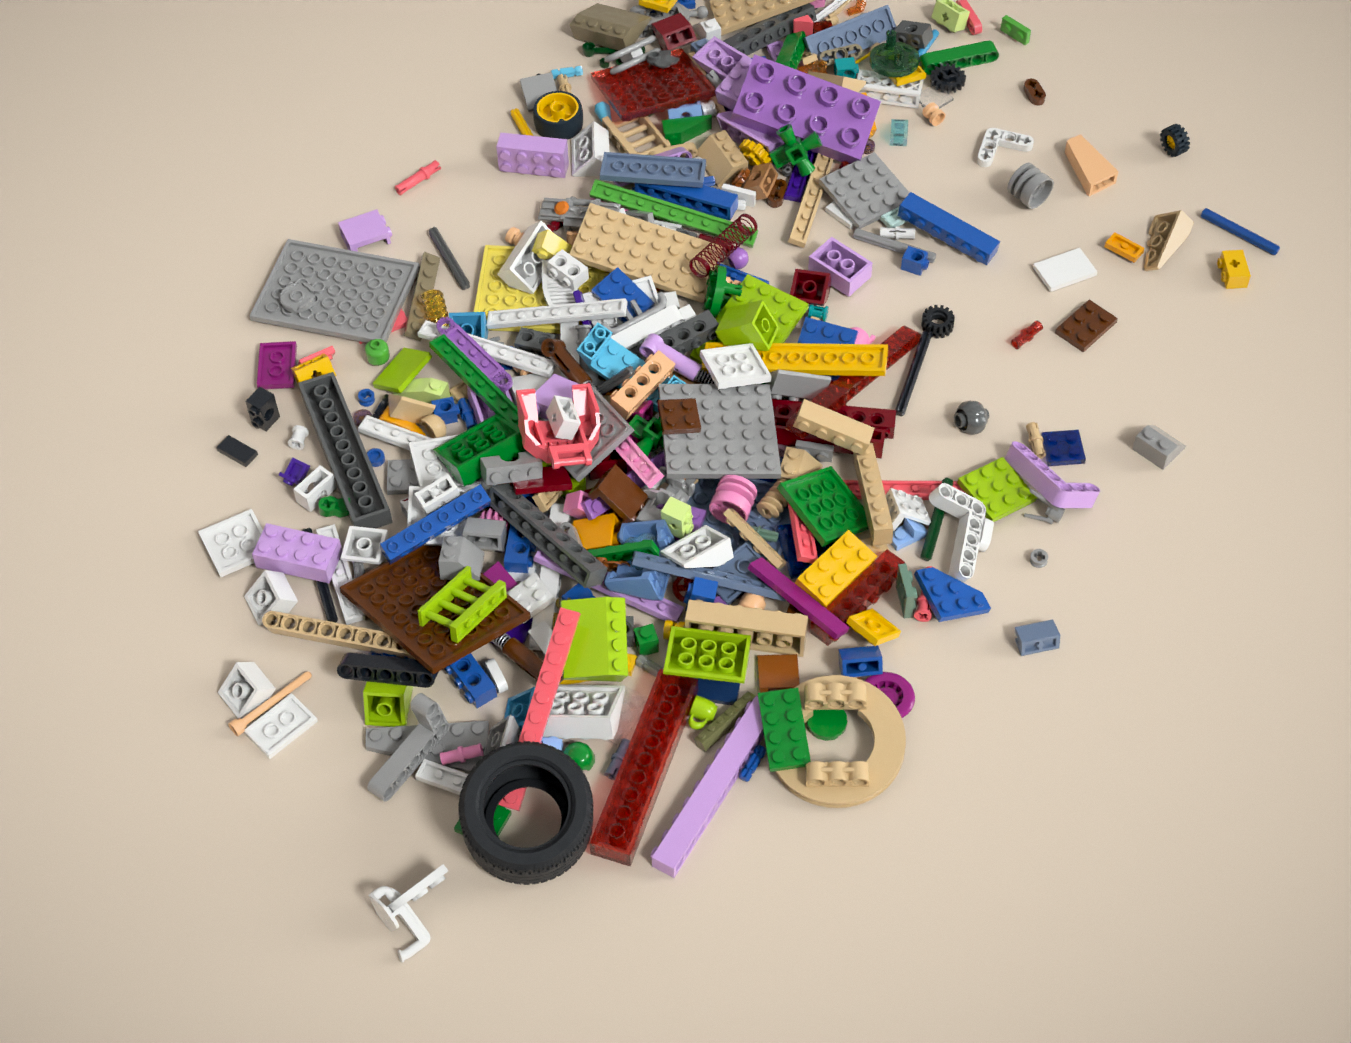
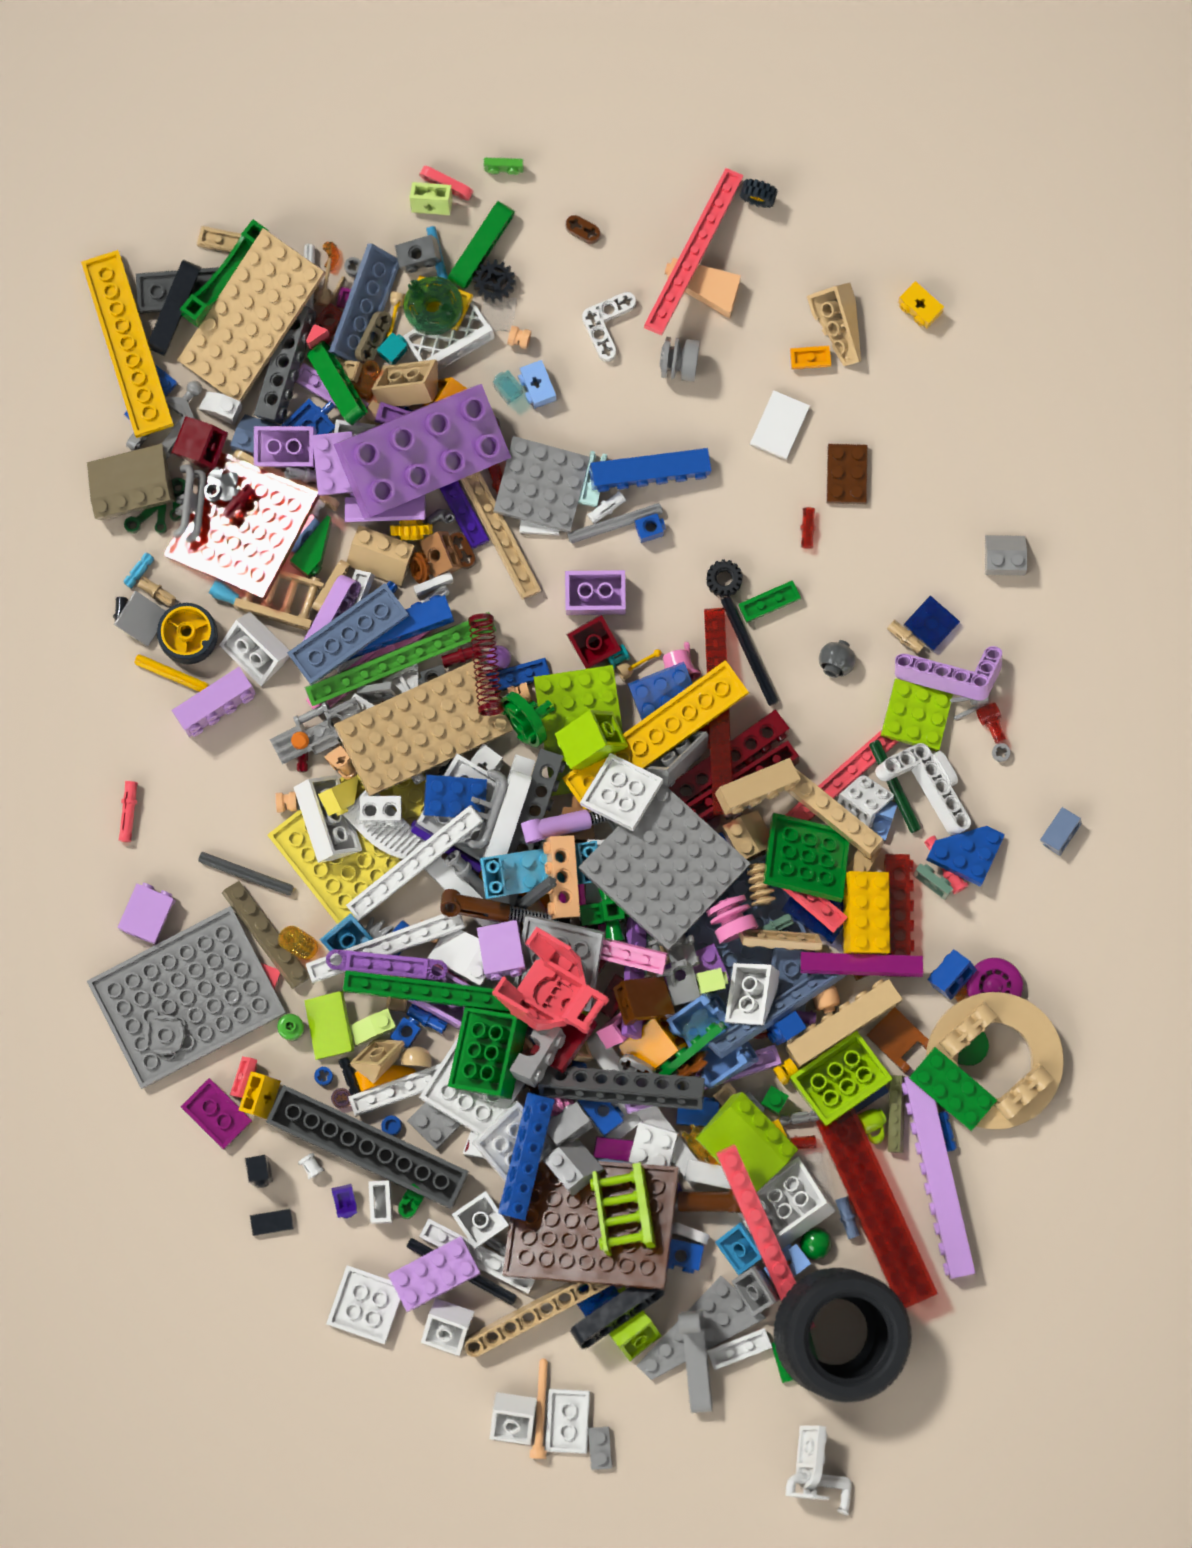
camera: 40 degrees left, 25 degrees up
(281, 762) = (600, 1448): none -> light grey plate
(437, 494) = (510, 1134): white brick -> none
(461, 754) = (734, 1323): bright pink pin -> none
(531, 340) = (416, 904): dark grey brick -> none
(563, 417) = (540, 974): white brick -> none
(638, 684) = (804, 1142): none -> clear red pin
(662, 68) = (238, 501): none -> dark red axle
(679, 416) = (628, 887): reddish brown plate -> none
(795, 150) = (451, 501): green brick -> none
(873, 627) = (935, 934): yellow plate -> none
(919, 143) = (537, 373): none -> light blue brick
(956, 355) = (769, 601): none -> green plate
(1051, 531) = (990, 717): none -> clear red pin
(1094, 137) = (693, 251): none -> coral plate
(1240, 231) = (890, 252): blue axle -> none

